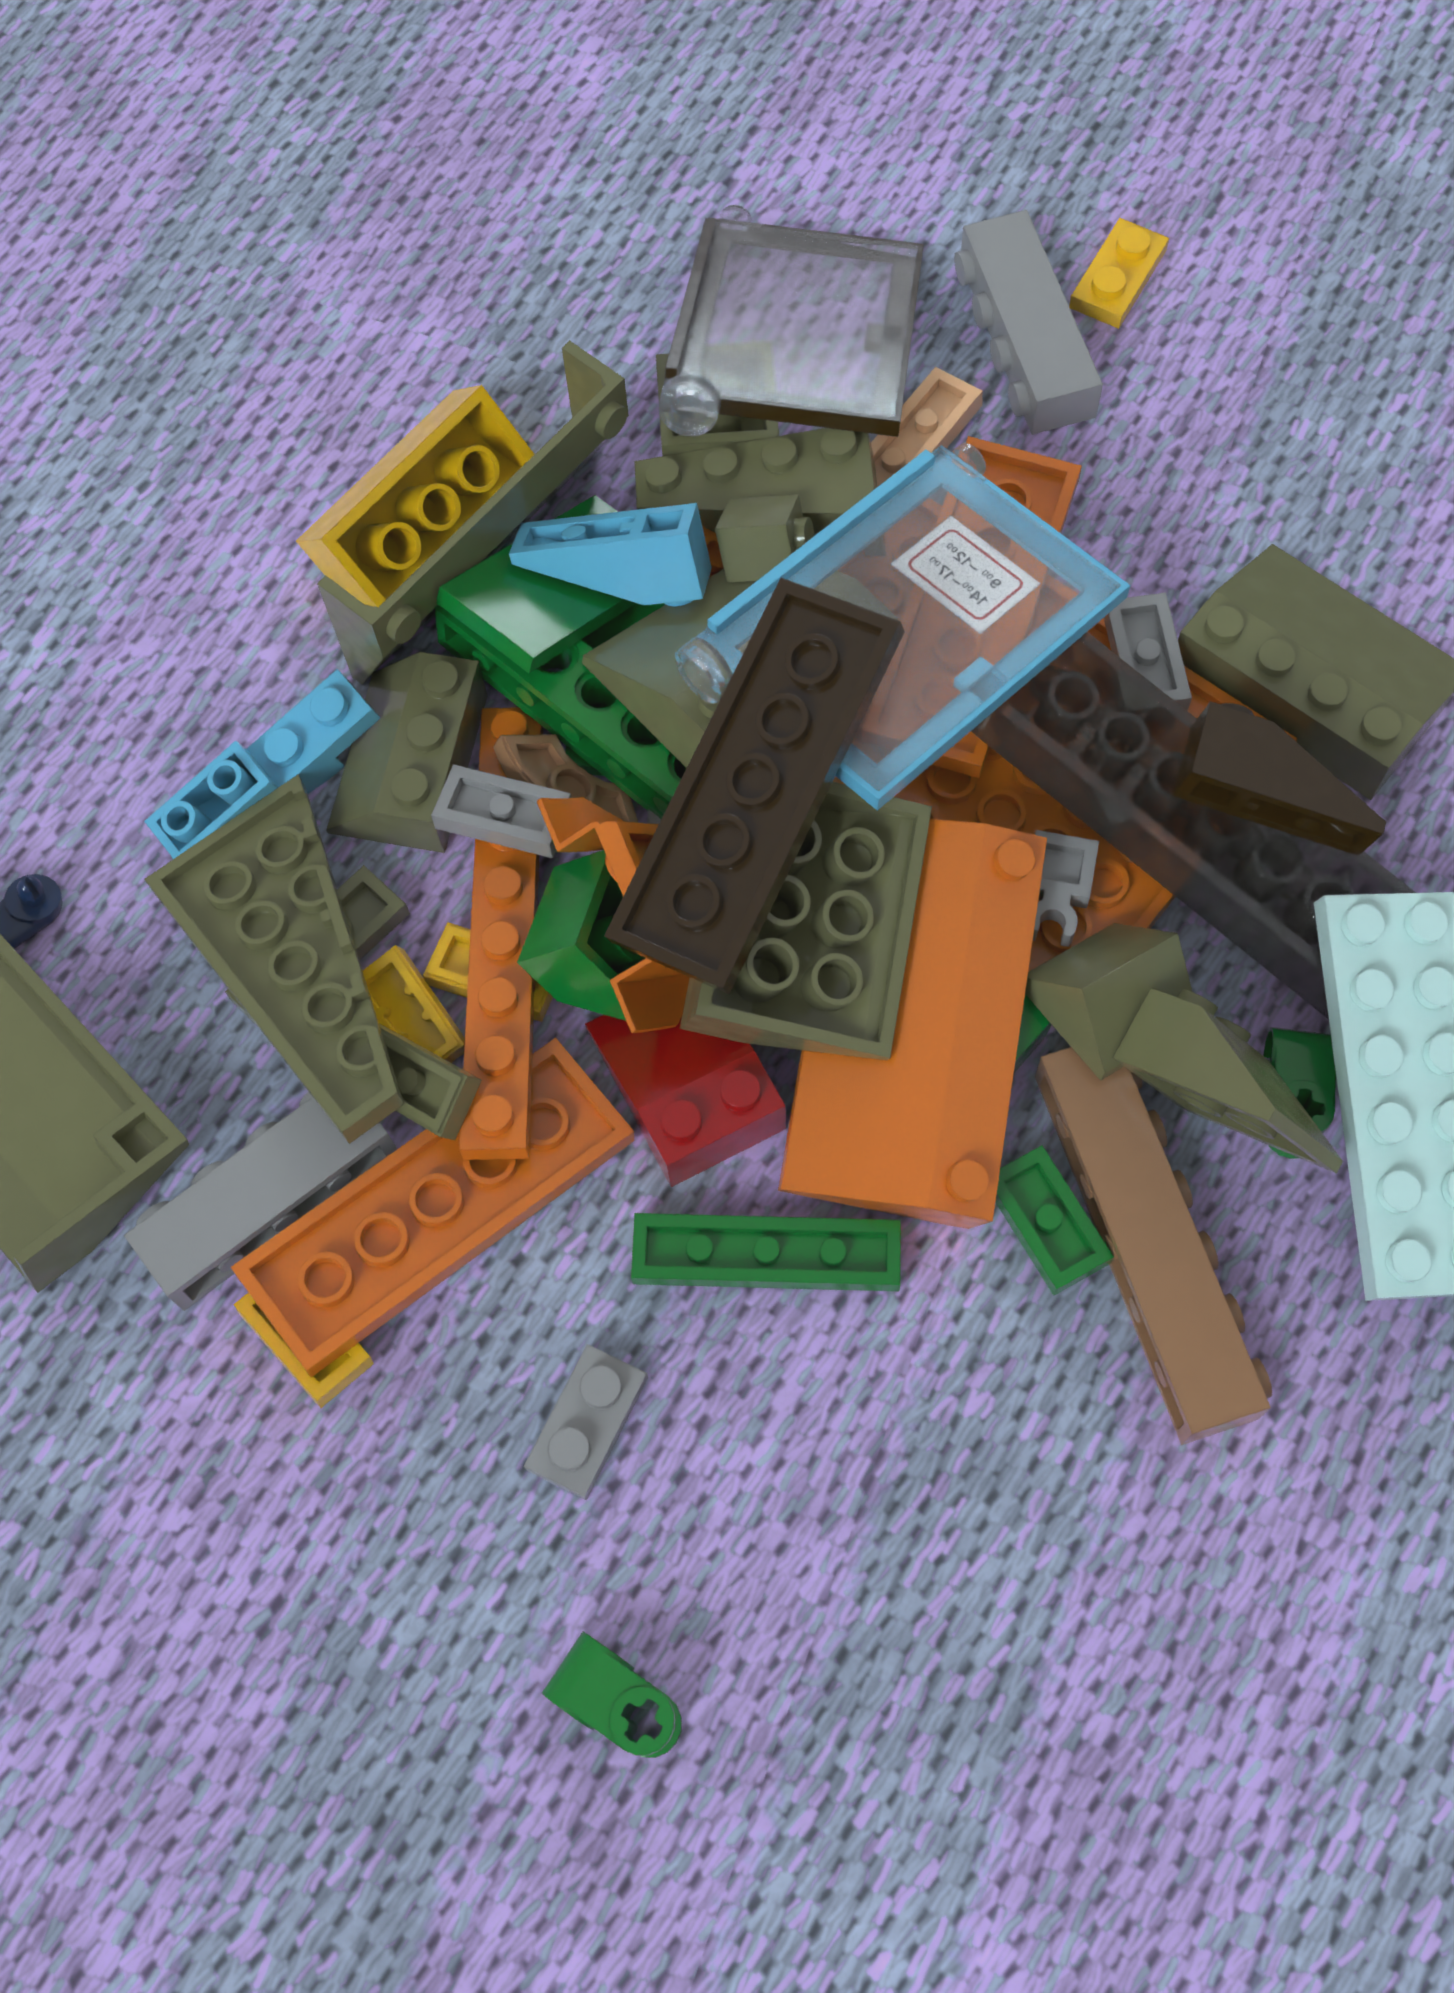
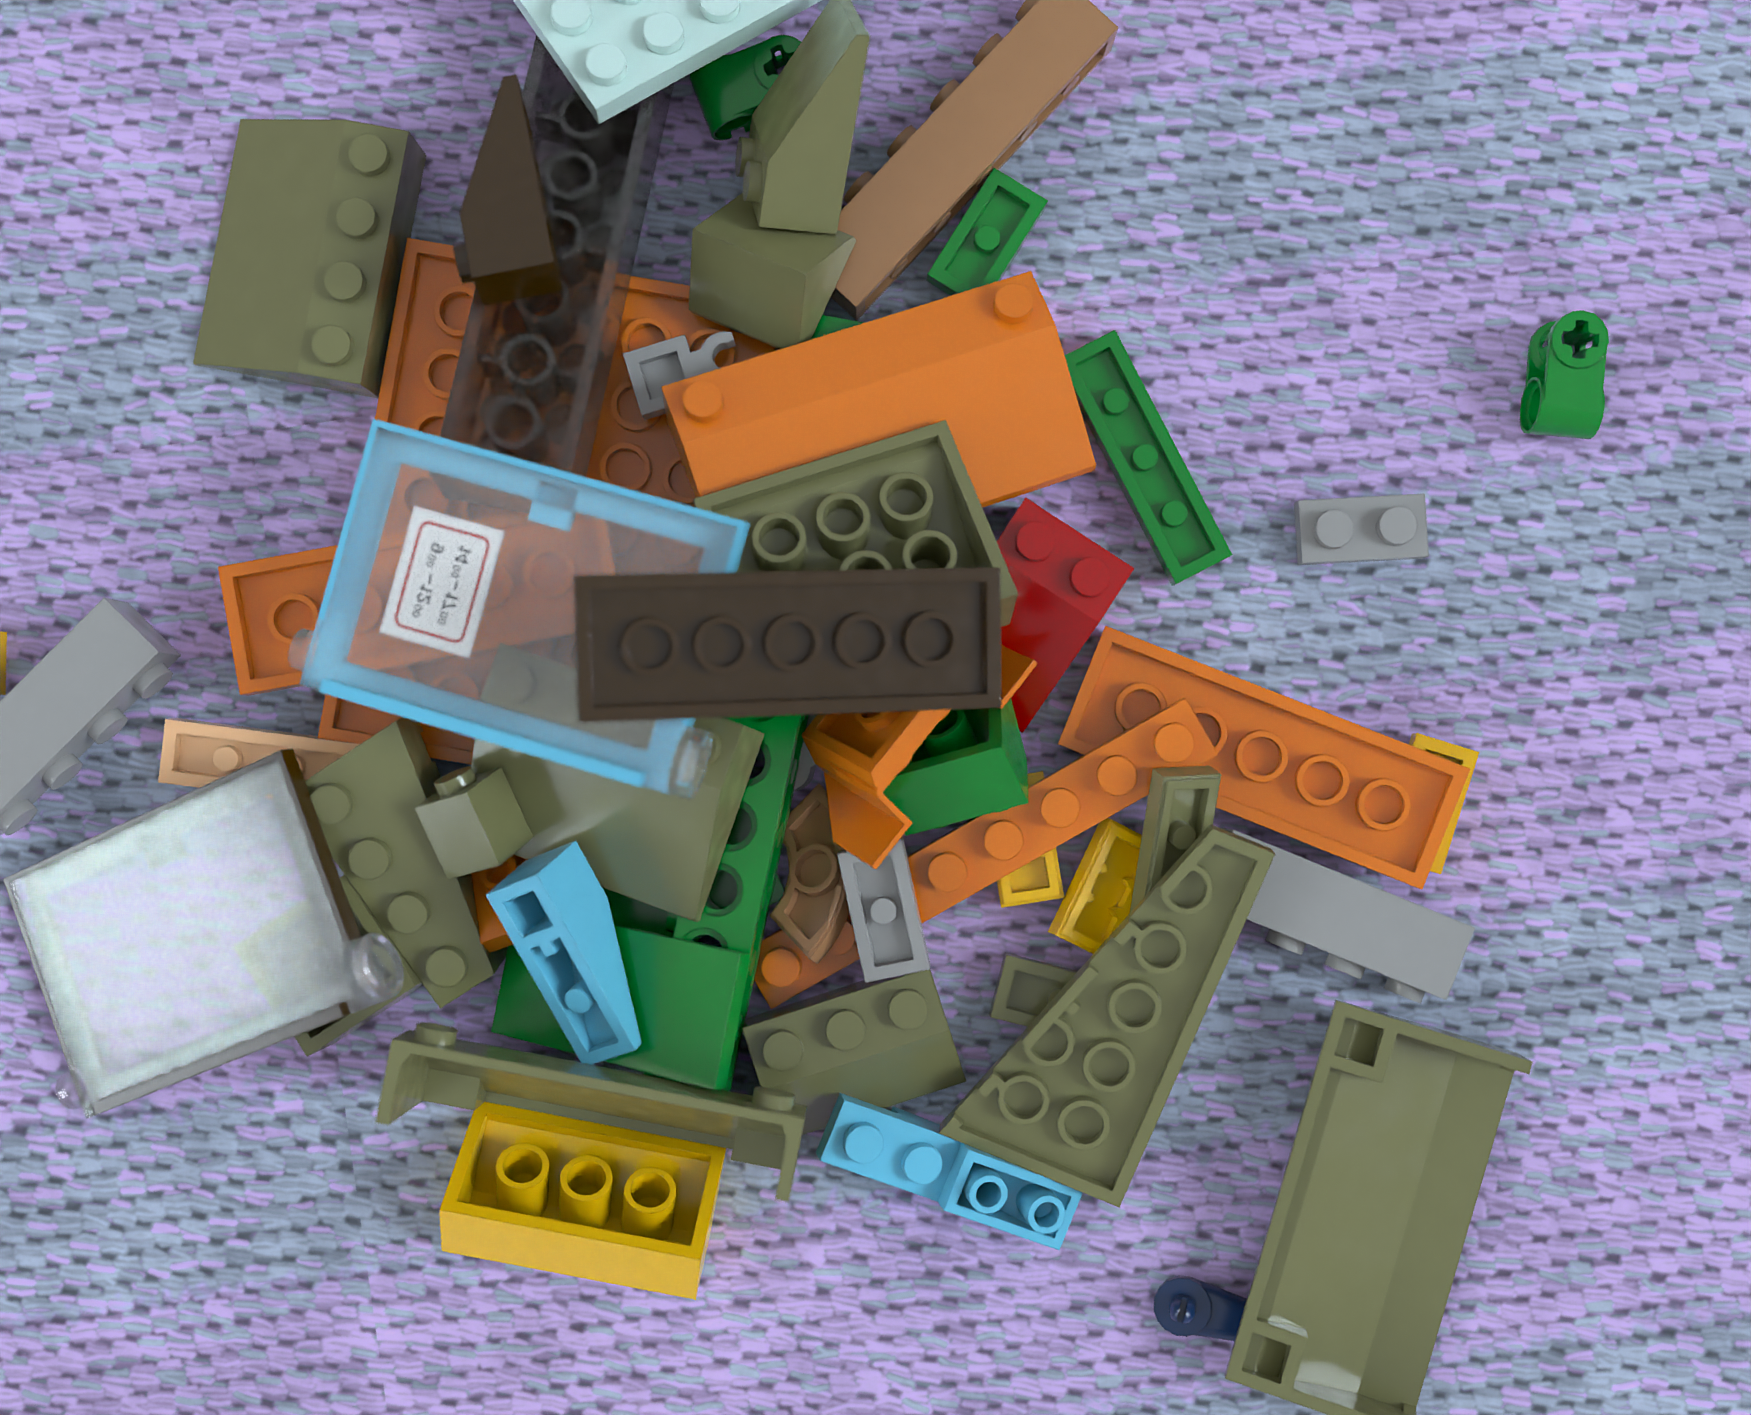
camera: 125 degrees left, 20 degrees up
(1146, 639) = (407, 395): light grey plate -> none

